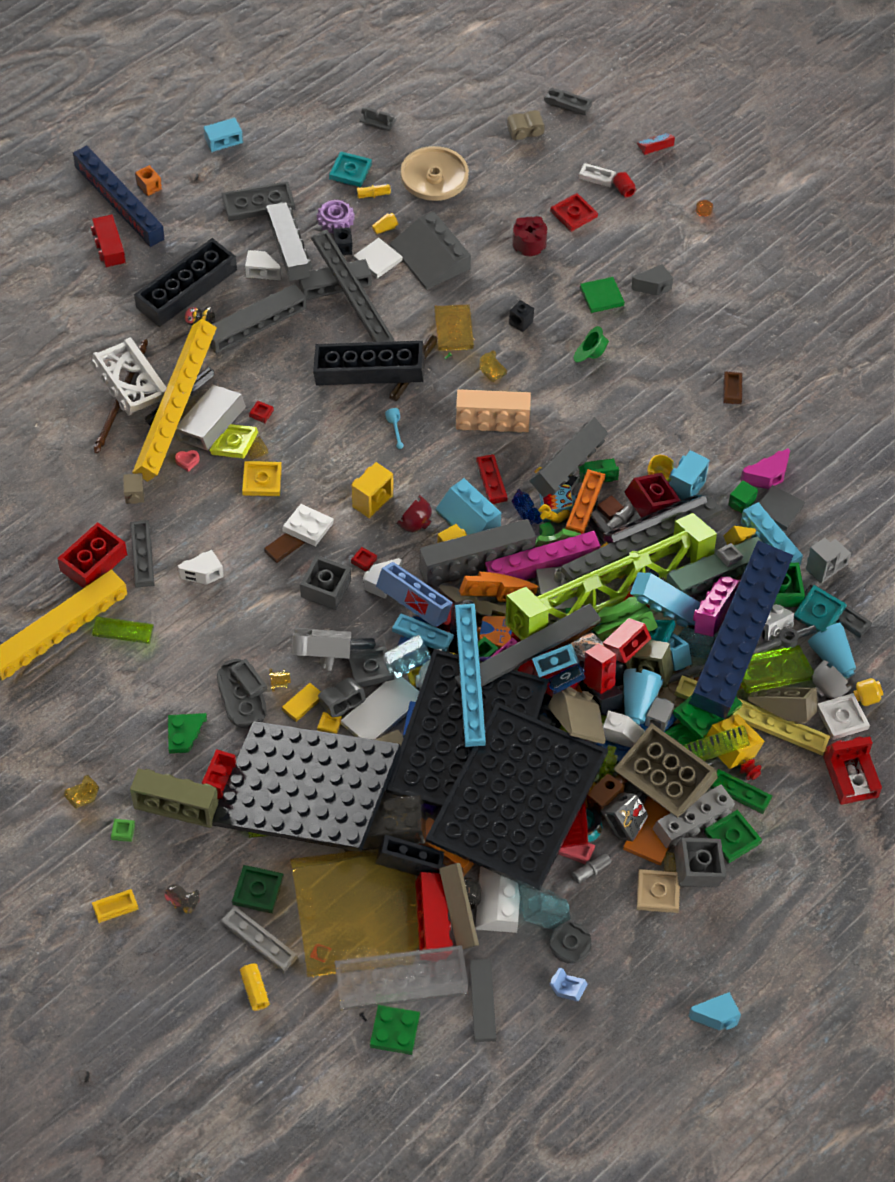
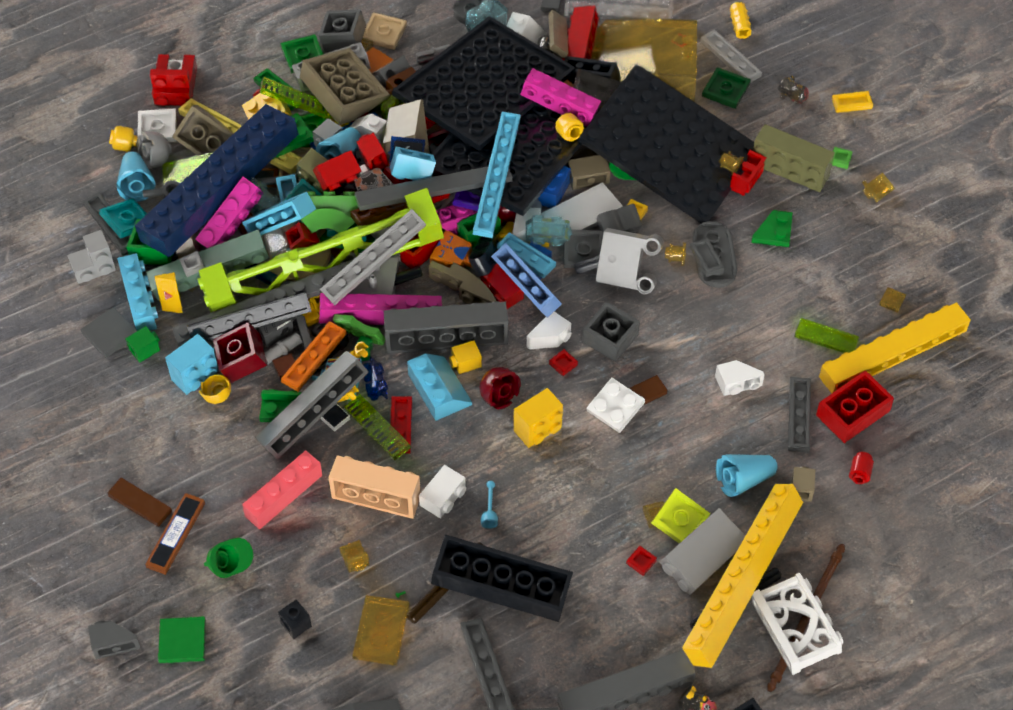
camera: 165 degrees left, 0 degrees up
(61, 679) = (892, 299): none -> clear yellow tile
(83, 512) = (861, 468): none -> red brick
(183, 484) = (744, 472): none -> medium azure cone
(187, 460) = (738, 515): coral tile -> none
(238, 772) = (730, 162): none -> clear yellow brick
(262, 478) = (655, 470): yellow plate -> none
(302, 702) = (663, 228): yellow tile -> none
(412, 753) = (569, 127): none -> yellow head
(429, 778) = (559, 96): none -> dark pink brick
(437, 426) = (442, 491): none -> white brick
(493, 585) = (446, 286): orange slope -> none
(507, 465) = (377, 427): none -> clear neon green tile
(558, 560) = (373, 257): none -> light grey plate
(569, 403) = (282, 489): none -> coral brick
(642, 363) = (175, 533): none -> tile
(682, 379) = (139, 502): none -> reddish brown tile
(732, 388) = (86, 481): reddish brown tile -> none
(767, 471) = (99, 367): dark pink slope -> none

